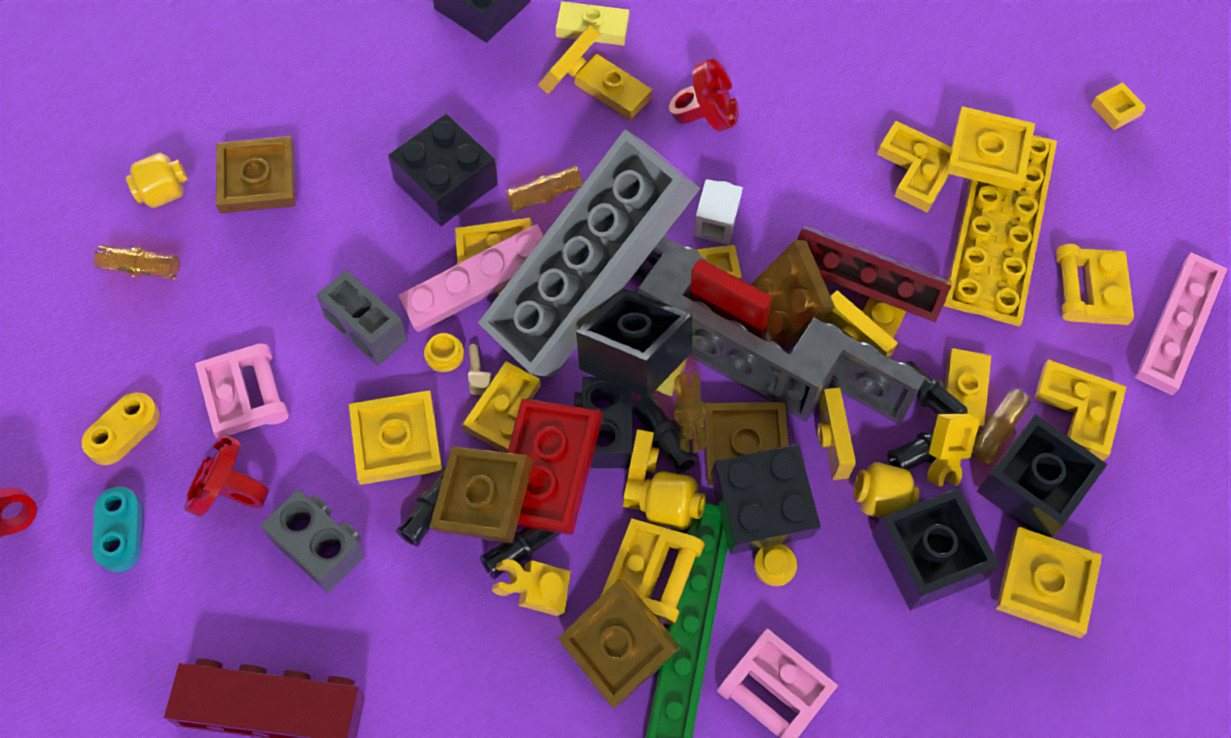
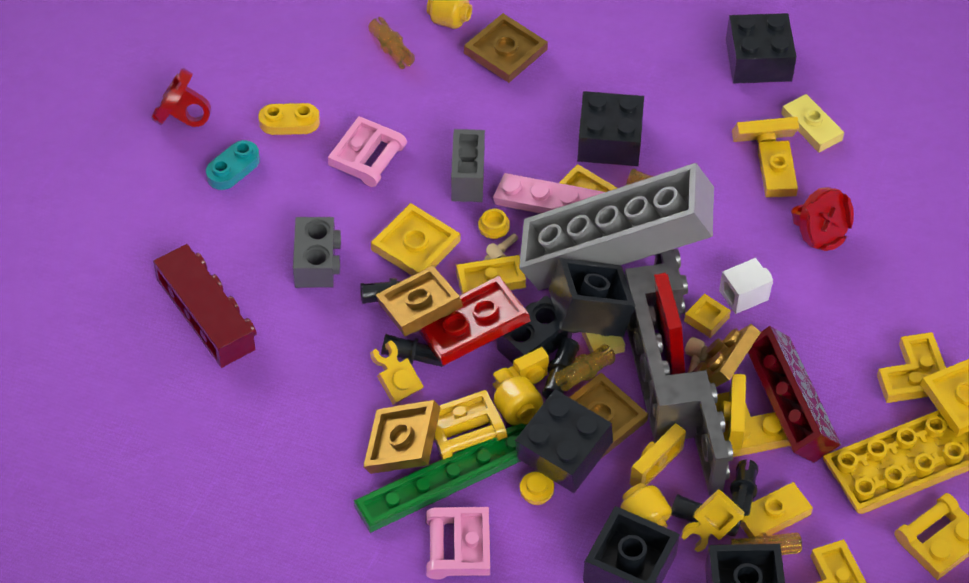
camera: 50 degrees right, 10 degrees down
(217, 477) = (302, 177): red tile -> none

